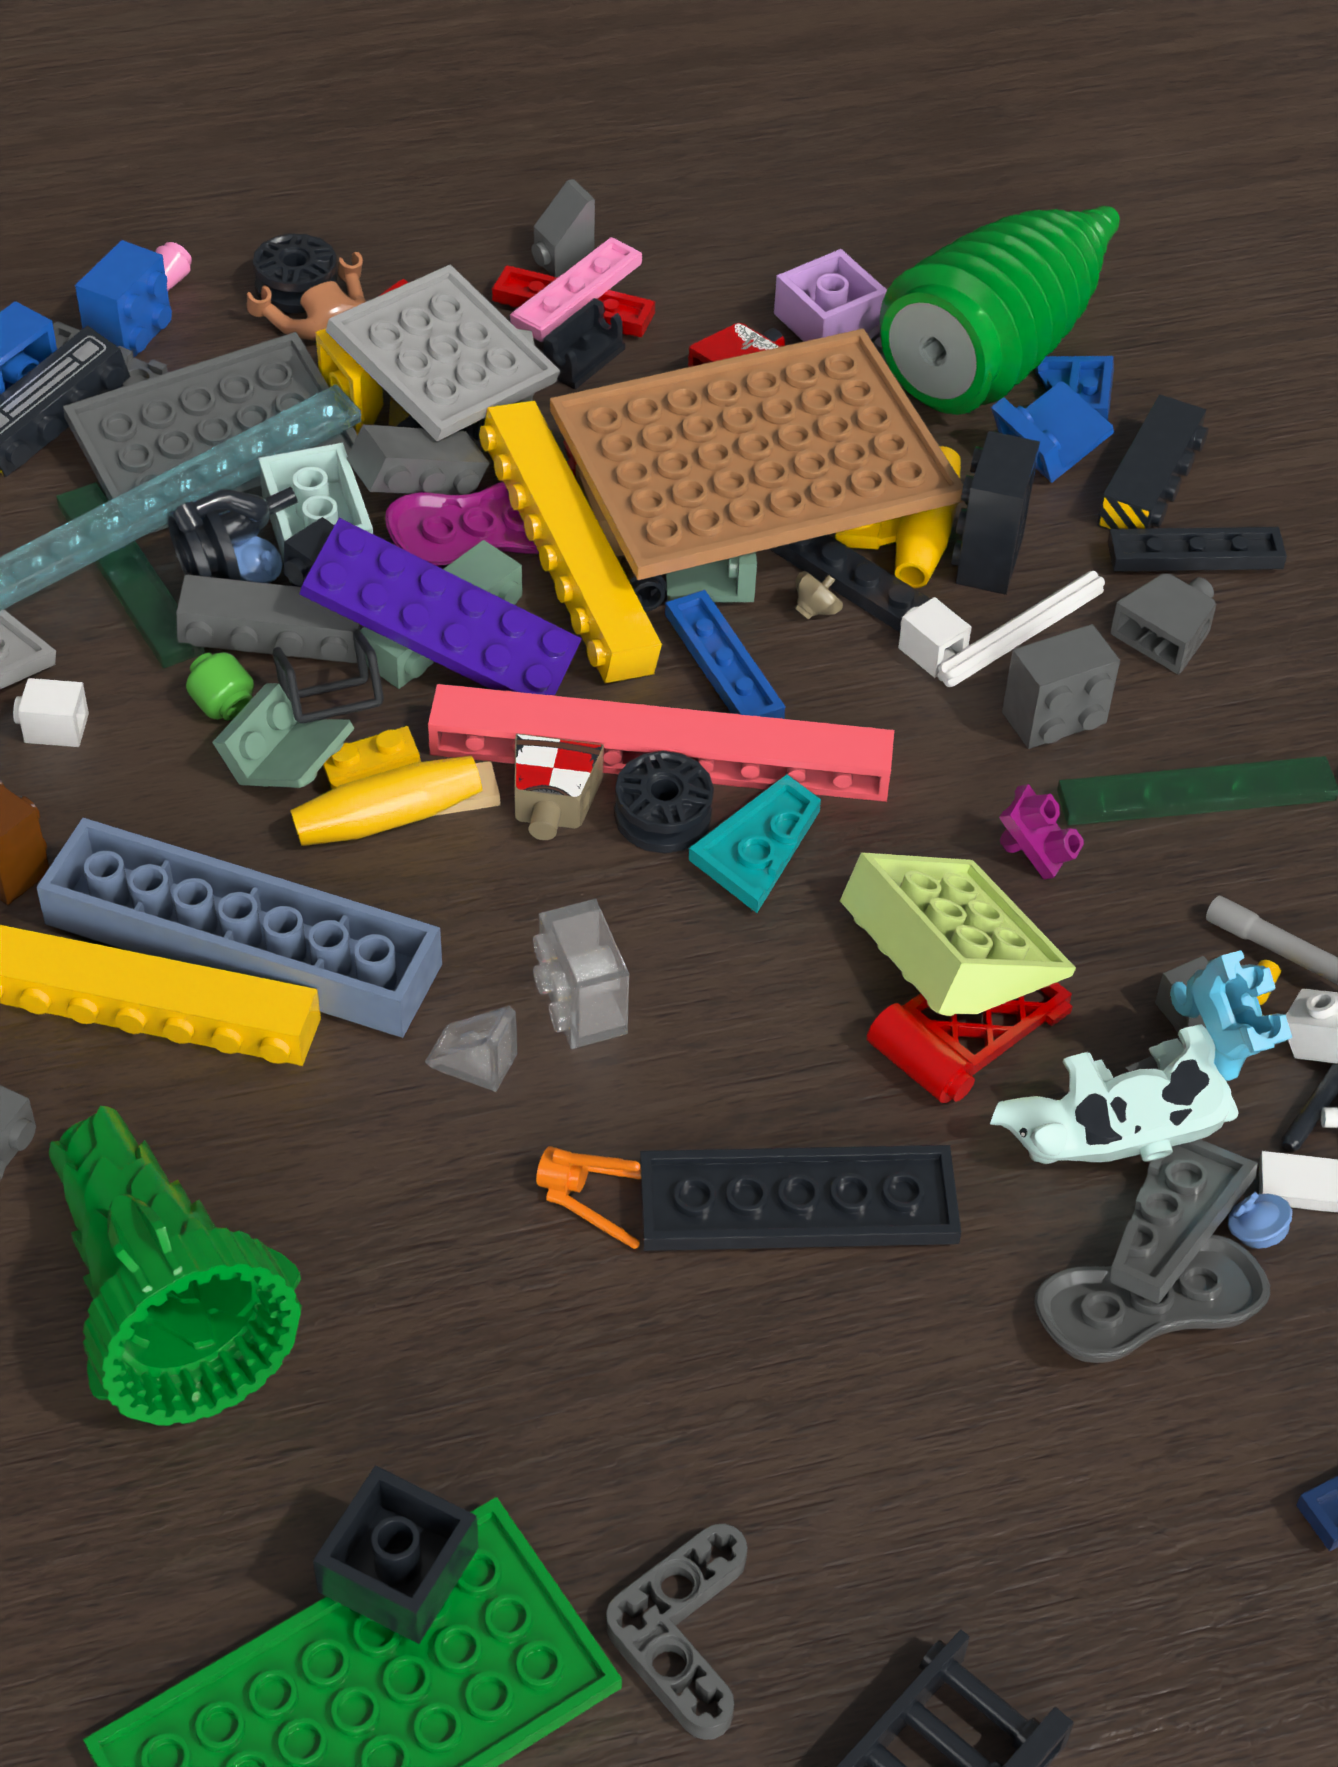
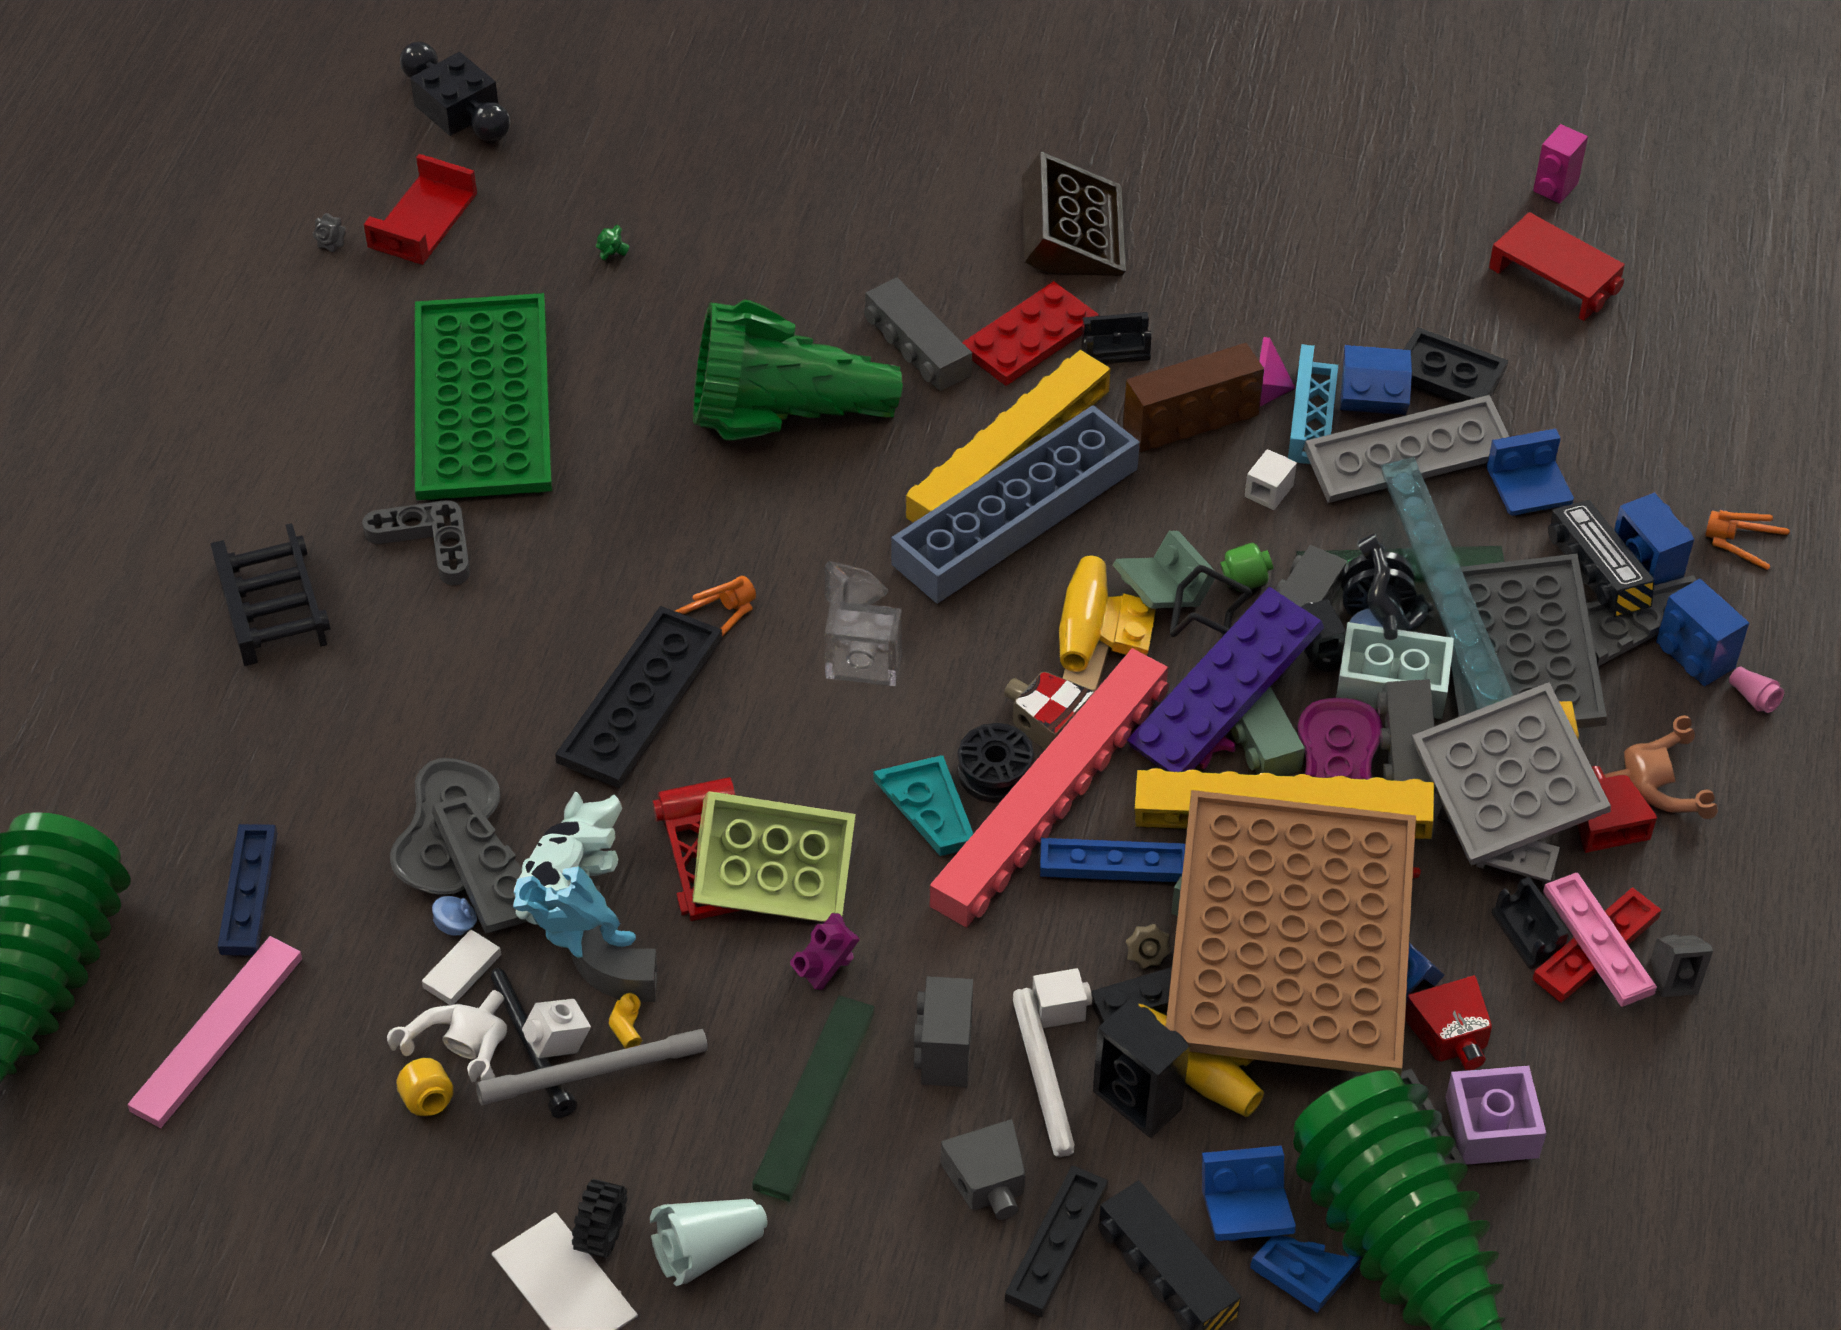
camera: 120 degrees right, 0 degrees up
(291, 267) = (1717, 763): black wheel -> none
(396, 1554) = (535, 410): black brick -> none

